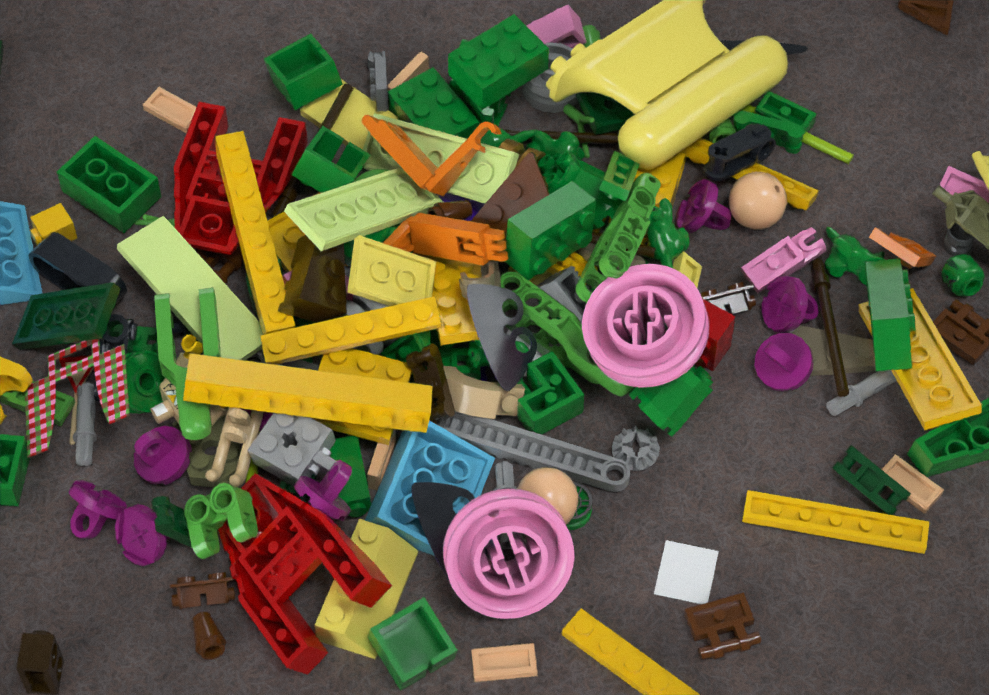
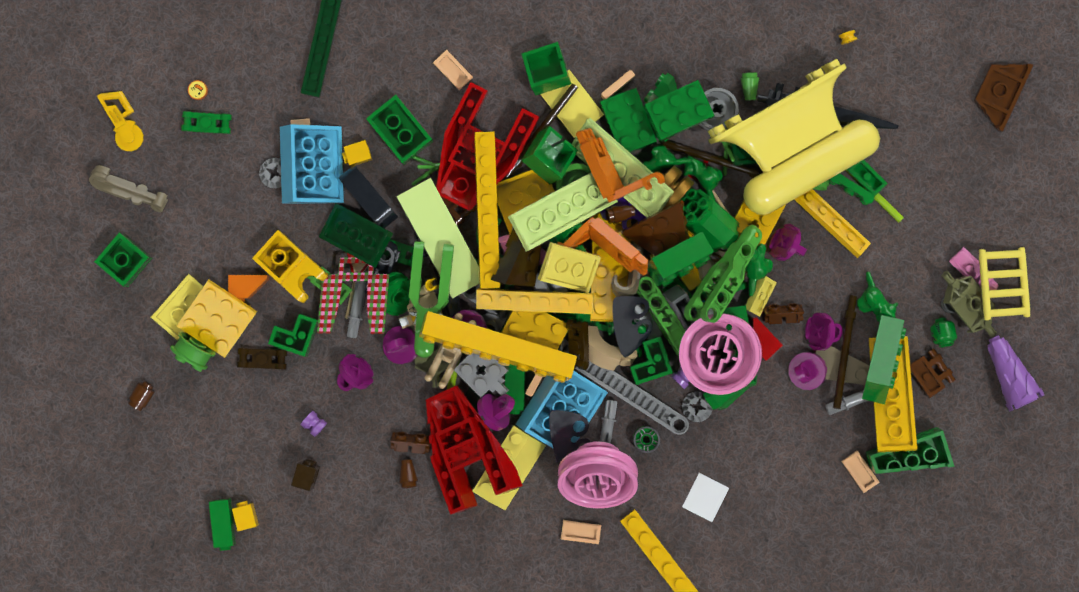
camera: 10 degrees right, 30 degrees up
(43, 593) = (313, 423): none -> medium lavender wheel
(138, 535) = (379, 402): magenta tile -> none
(170, 520) = (404, 402): dark green plate -> none
(210, 512) = (439, 411): bright green piece -> none
(378, 79) = (597, 79): dark grey hinge -> none
(412, 643) = (526, 512): green piece -> none
(555, 488) = (632, 442): light nougat piece -> none
(559, 27) = (726, 75): bright pink brick -> none
(602, 409) = (680, 378): none -> medium lavender wheel
(619, 177) = (735, 227): green plate -> none
(718, 618) = (716, 535): reddish brown plate -> none
(739, 152) = (823, 209): black piece -> none
(757, 200) = (826, 247): light nougat piece -> none
(783, 259) = (829, 296): bright pink plate -> none
(836, 521) = (805, 488): yellow plate -> none
(871, 480) = (836, 467): dark green plate -> none
(907, 250) = (911, 309): orange wing -> none

